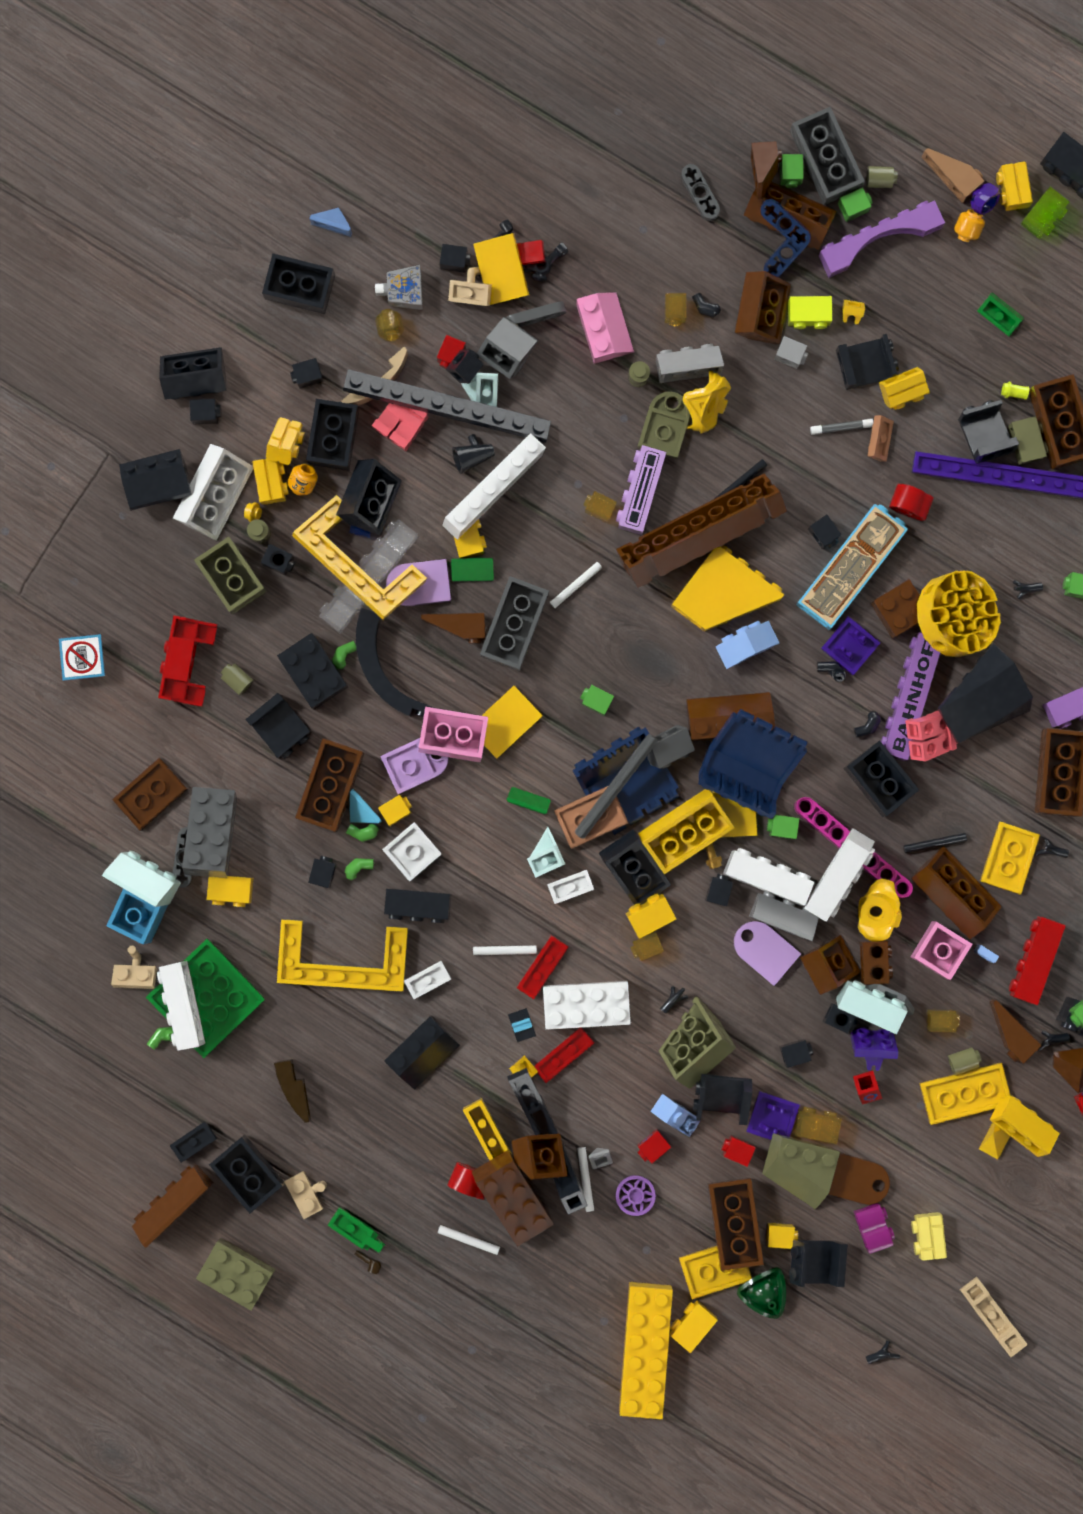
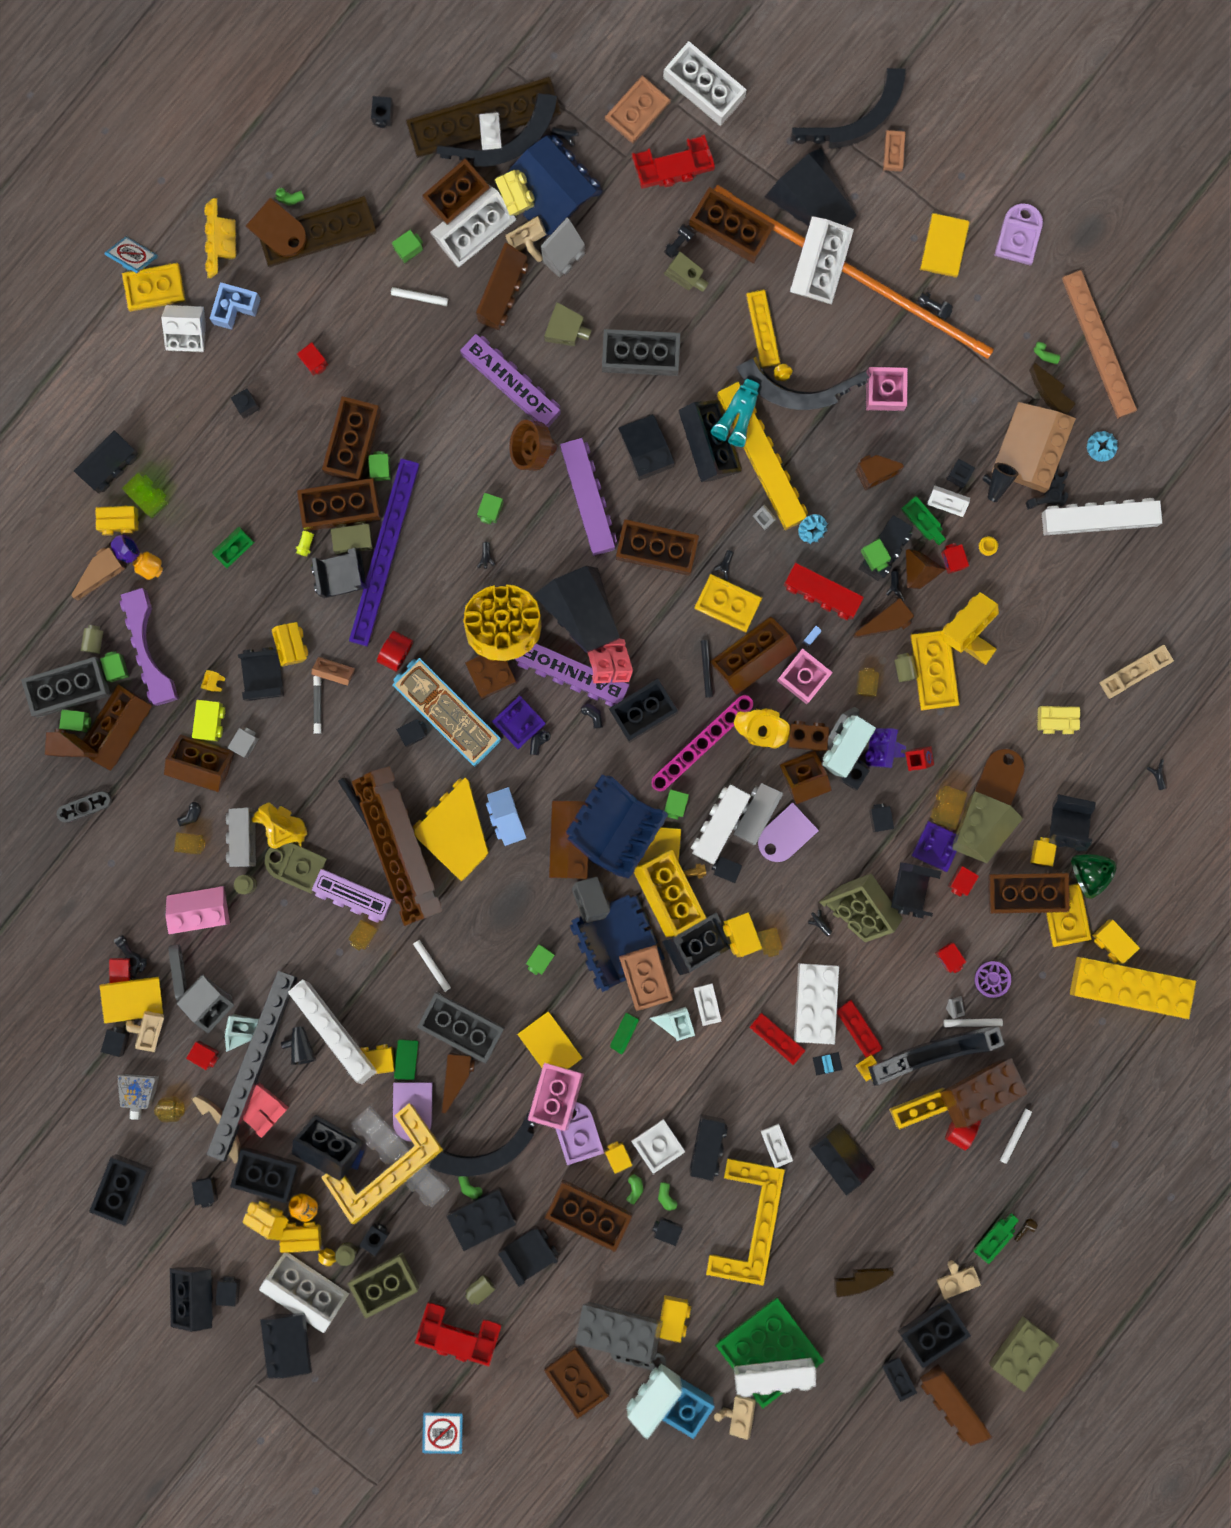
camera: 80 degrees left, 0 degrees up
(160, 1034) = (798, 1398): bright green arm -> none
(331, 220) = (64, 1151): medium blue slope -> none
(360, 811) = (615, 1188): medium azure slope -> none
(464, 366) = (217, 1045): black brick -> none
(504, 950) = (757, 1071): white bar -> none
(506, 228) = (93, 989): black hand -> none
(540, 1156) = (949, 1064): reddish brown slope -> none
(616, 786) = (620, 952): dark grey axle -> none
(675, 1115) = (925, 934): light blue slope -> none
(791, 241) = (140, 730): dark blue beam -> none
(837, 879) = (727, 759): white brick -> none
(874, 1228) = (1045, 768): magenta brick -> none

